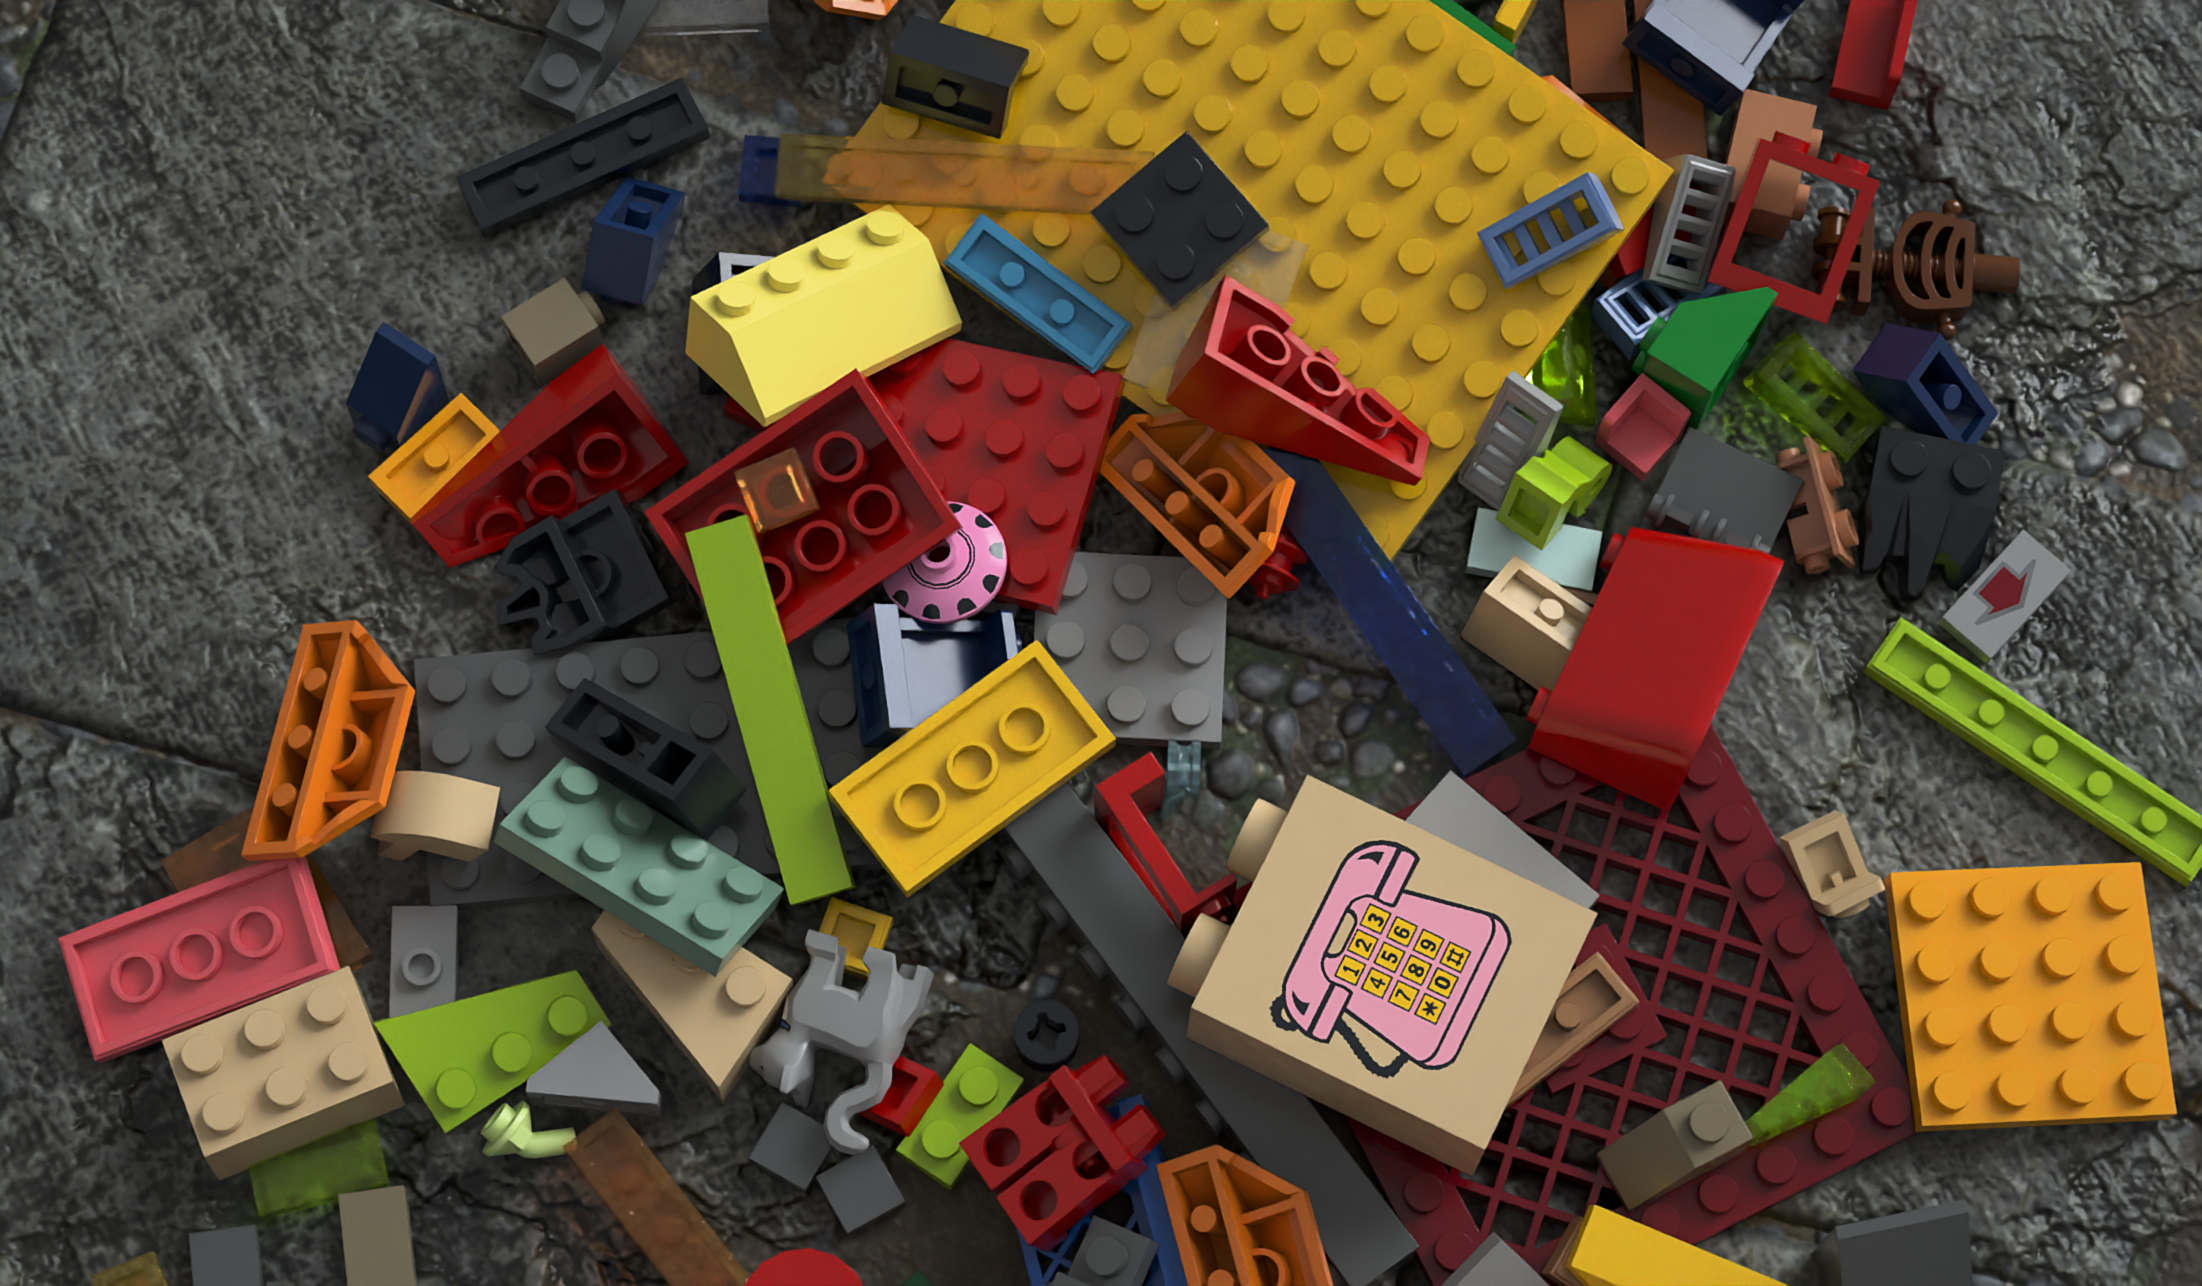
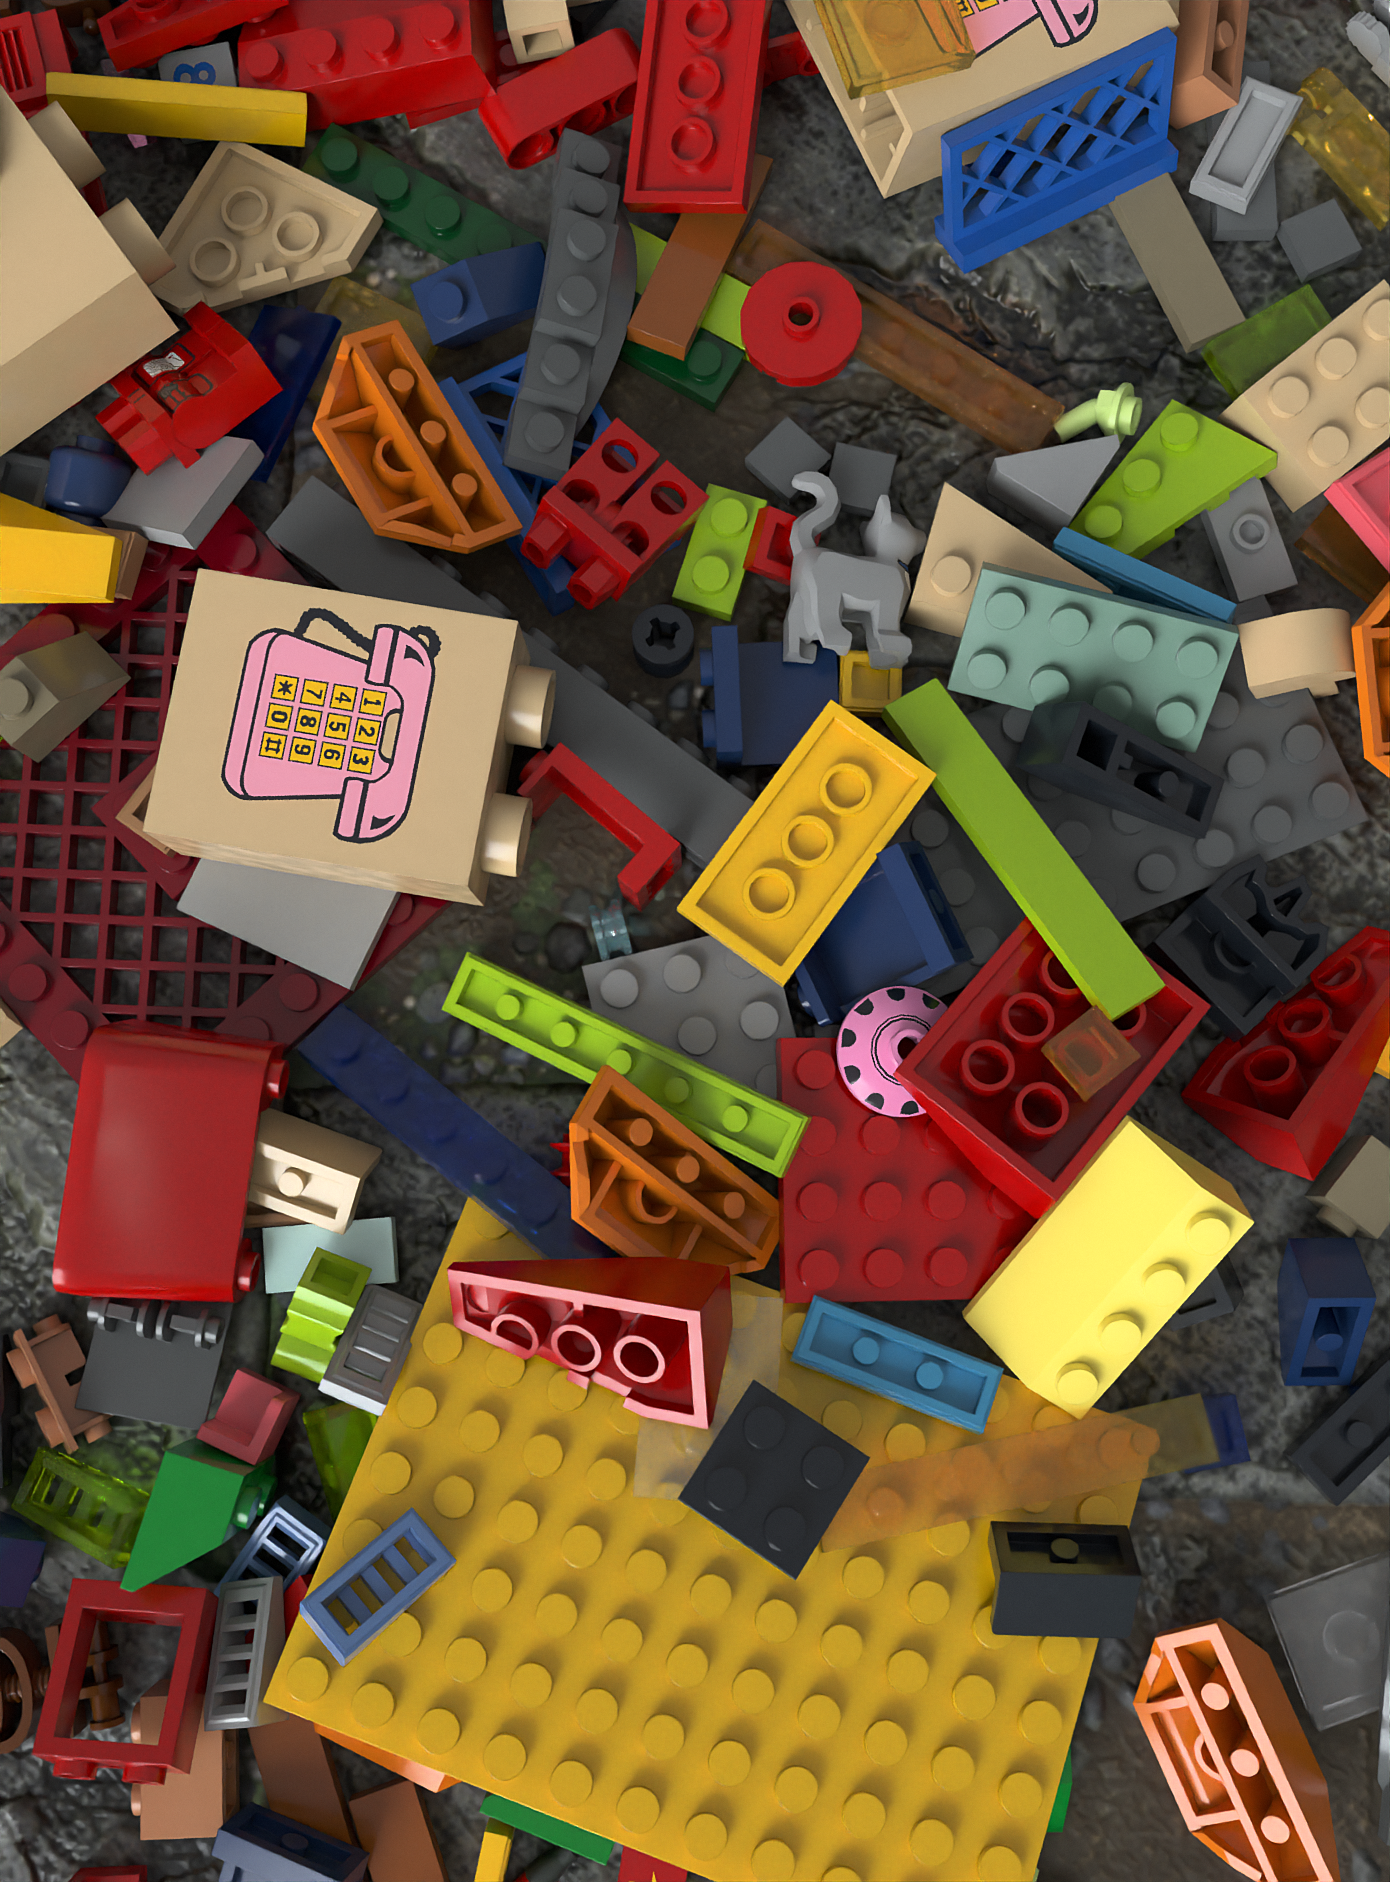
camera: 170 degrees right, 10 degrees up
(559, 930) = (1139, 580): none -> dark azure tile
(967, 939) = (760, 699): none -> dark blue bracket
(1207, 632) = (584, 1040): none -> lime tile

